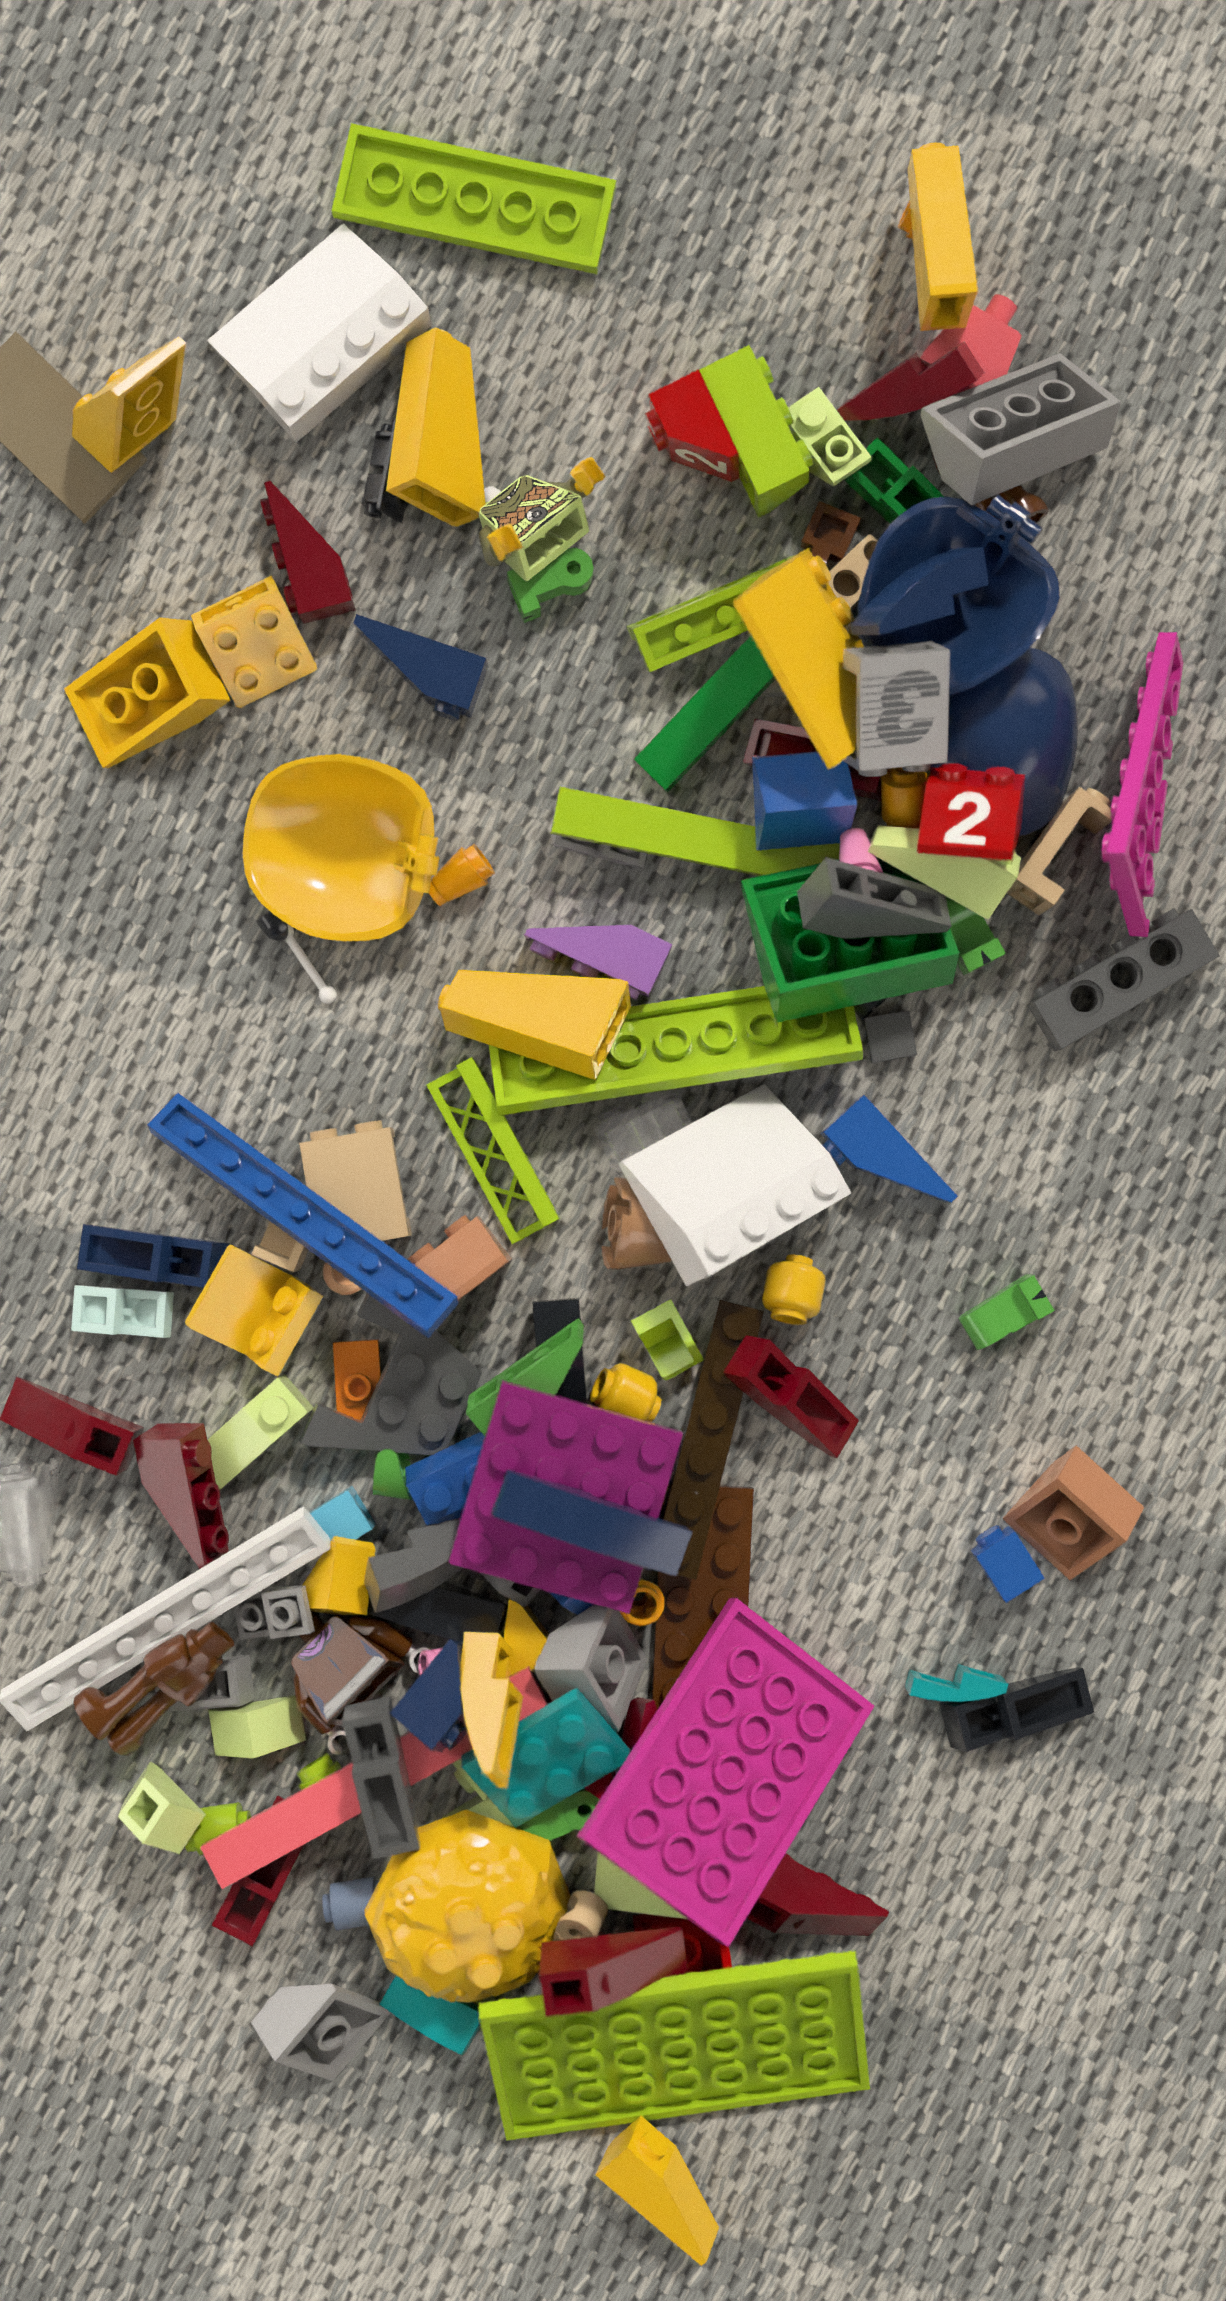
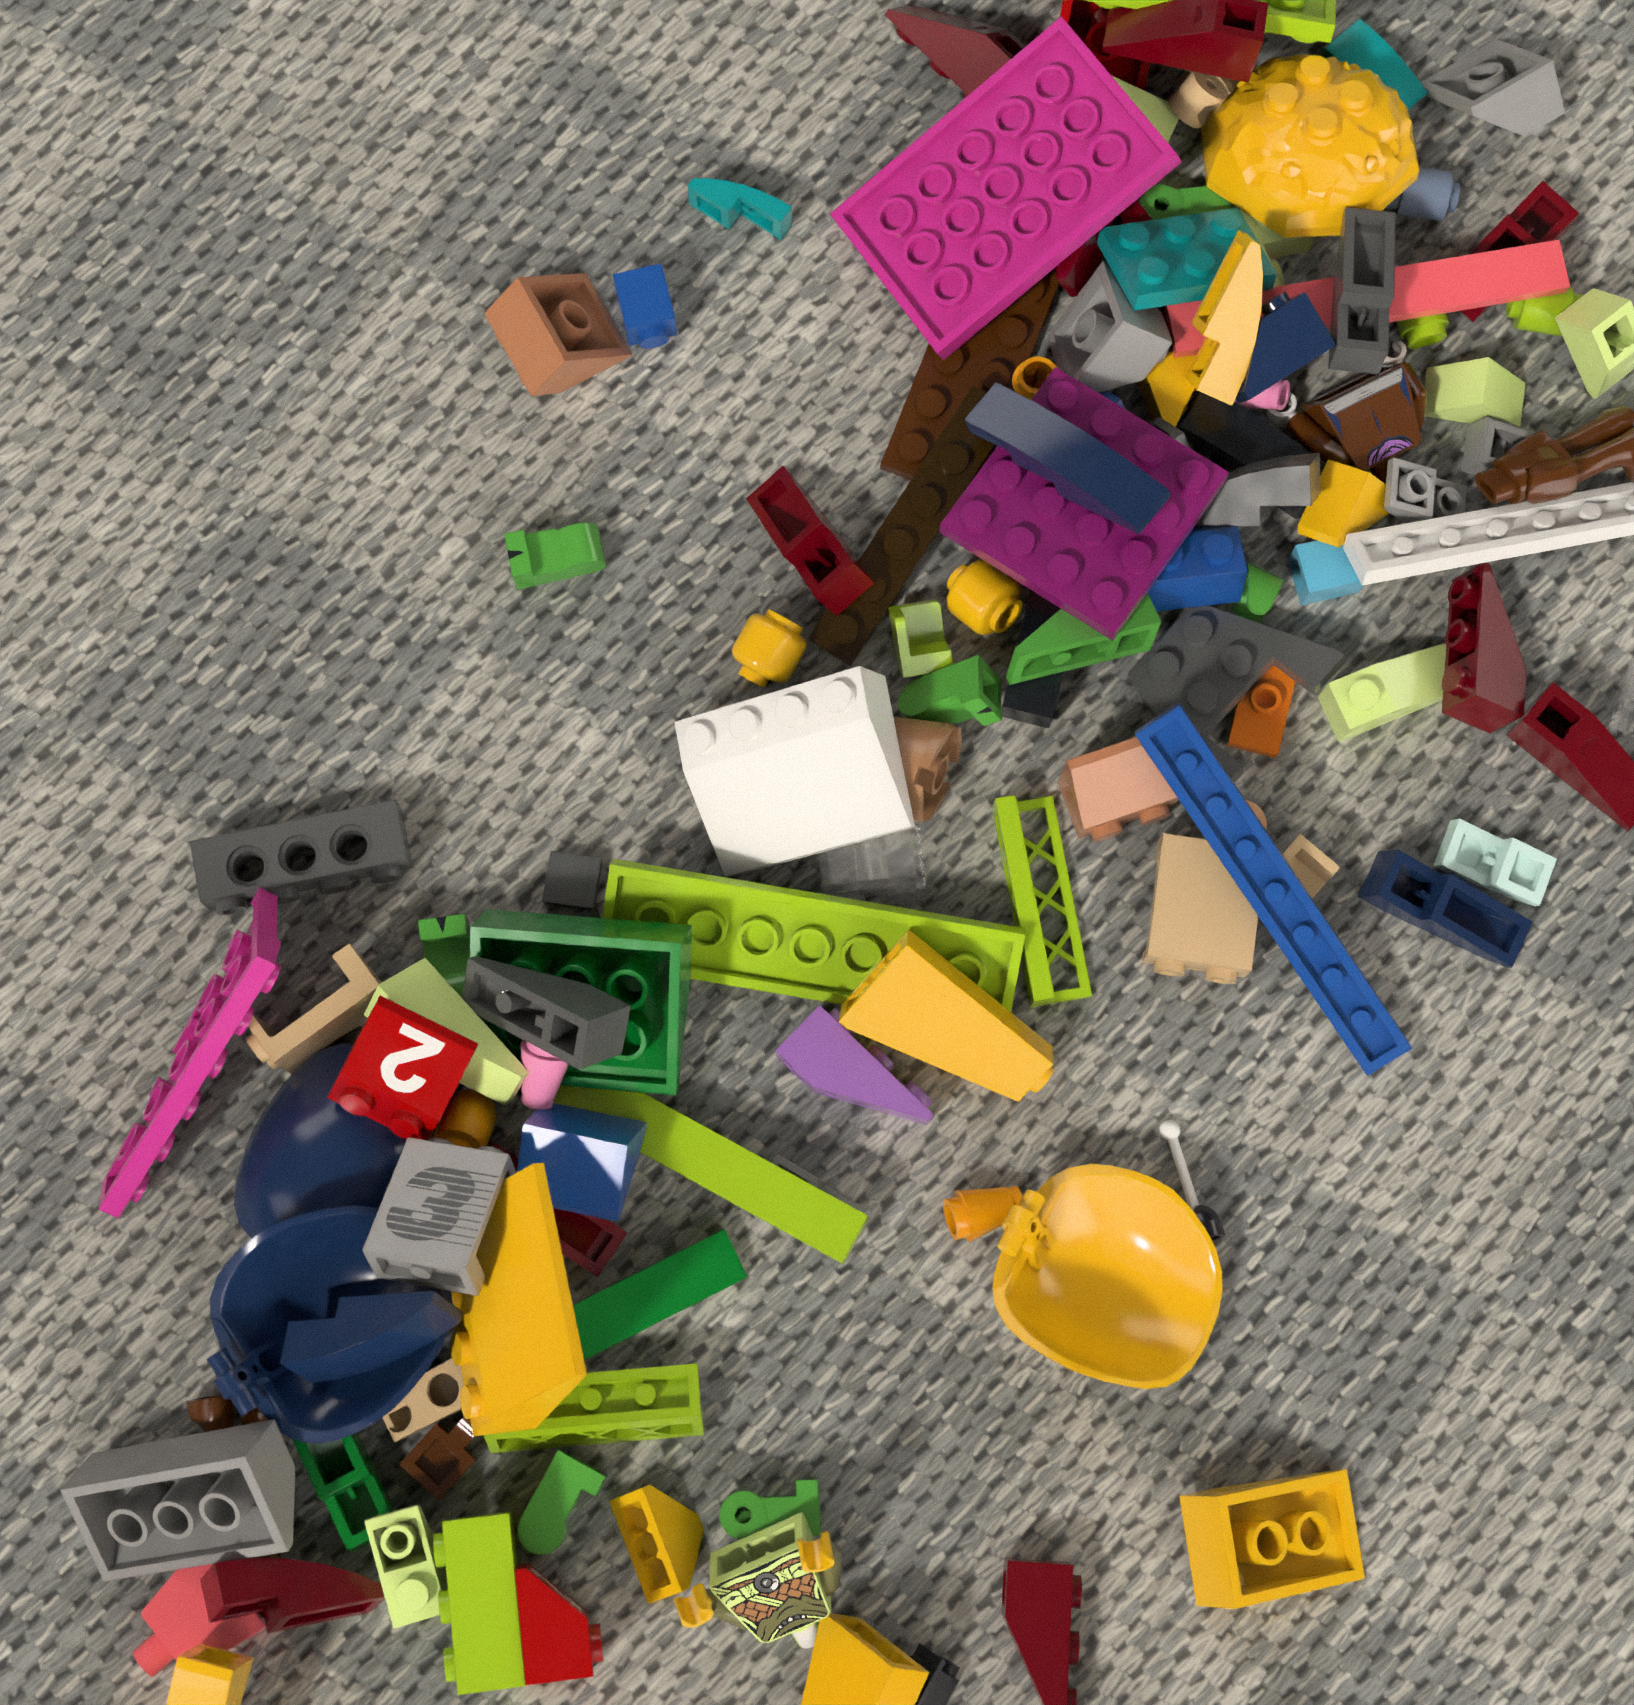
camera: 170 degrees left, 10 degrees down
(254, 642) = (1133, 1559): yellow bracket -> none
(254, 1309) = (1351, 811): yellow bracket -> none
(435, 670) = (939, 1452): dark blue slope -> none
(623, 1298) = (954, 694): none -> bright green leg
(631, 531) = (660, 1540): none -> yellow slope
(728, 517) = (545, 1518): none -> bright green leg
(874, 1146) = (630, 764): blue slope -> none
(1020, 1712) = (671, 159): black slope -> none

